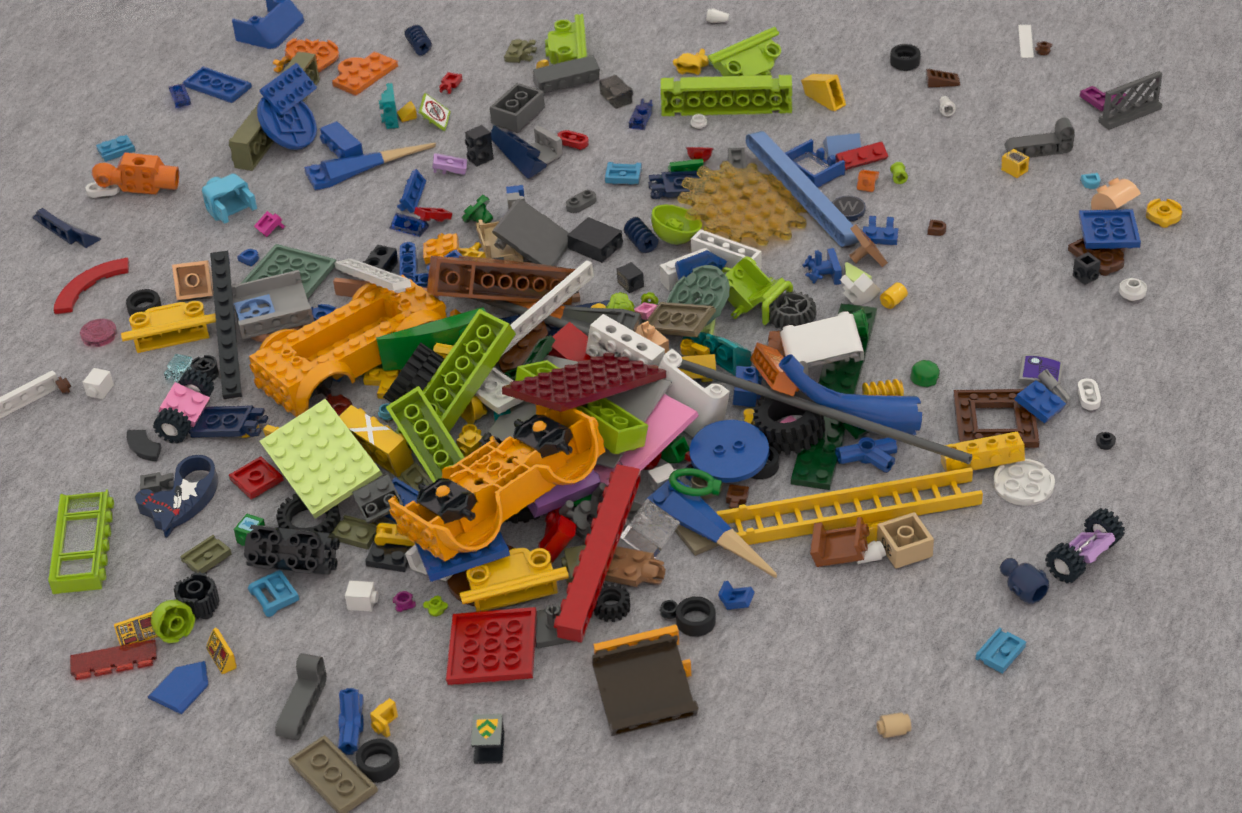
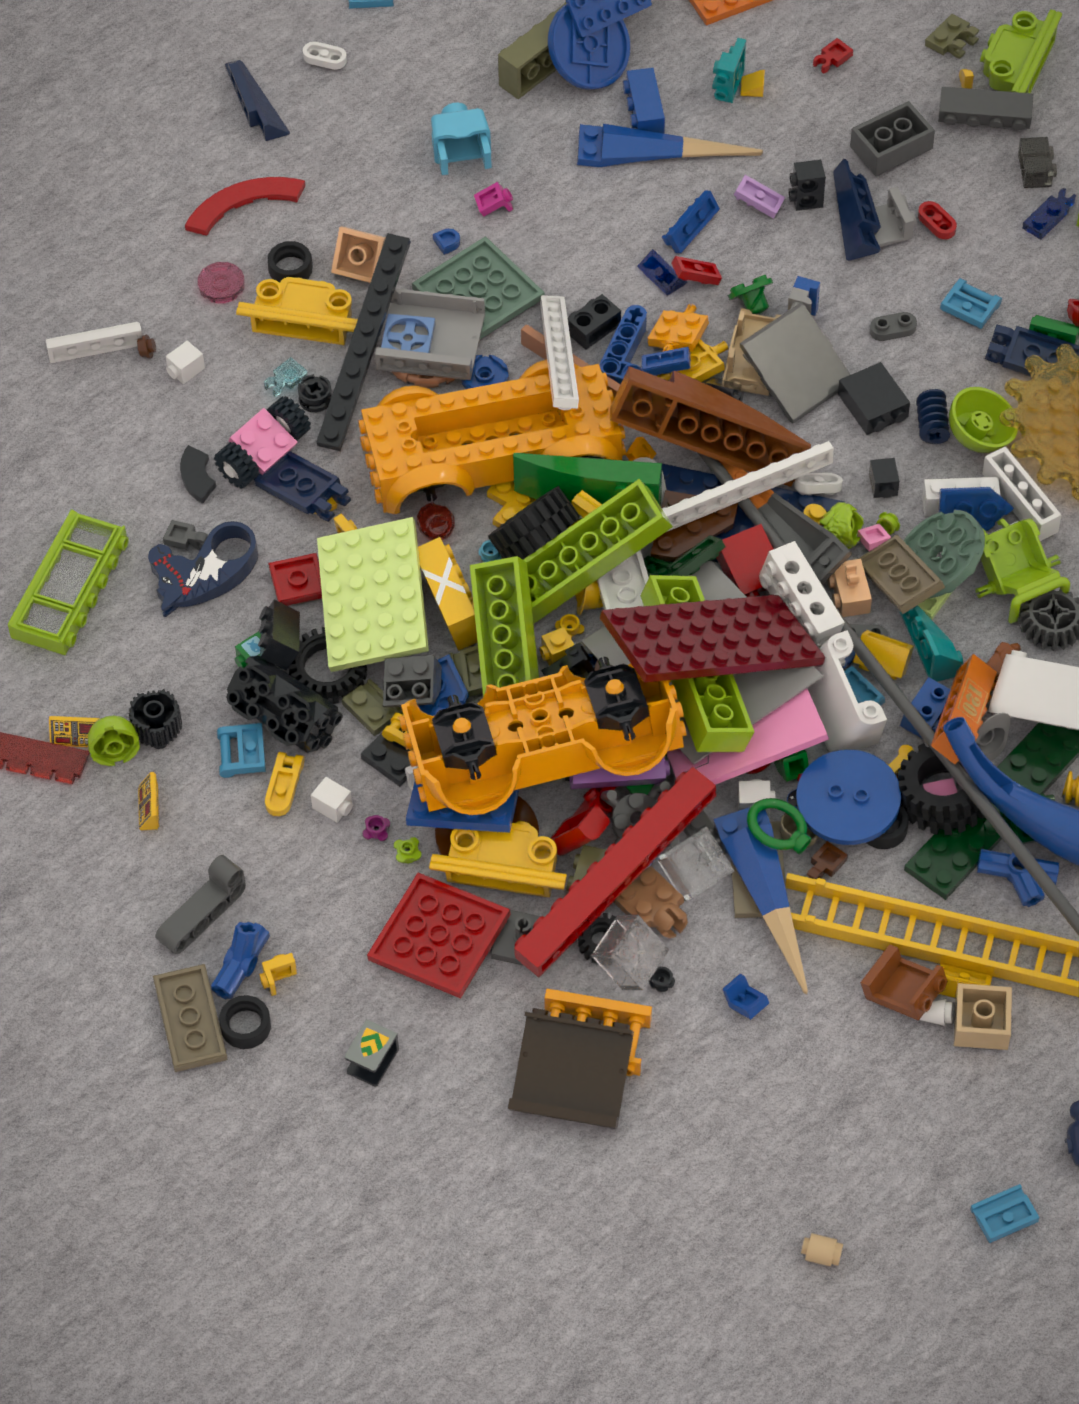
camera: 25 degrees right, 15 degrees up
(137, 174) = (371, 56): orange brick -> none
(181, 687) = (89, 826): blue tile -> none
(206, 554) = (193, 664): olive plate -> none
(264, 507) = (279, 634): none -> black brick
(318, 601) = (283, 783): none -> yellow plate
(434, 112) = (784, 101): piece -> none
(593, 294) = (818, 483): none -> white plate
(639, 597) = (630, 952): none -> clear brick
(689, 348) = (894, 620): yellow plate -> none
(692, 604) = (688, 984): black tyre -> none

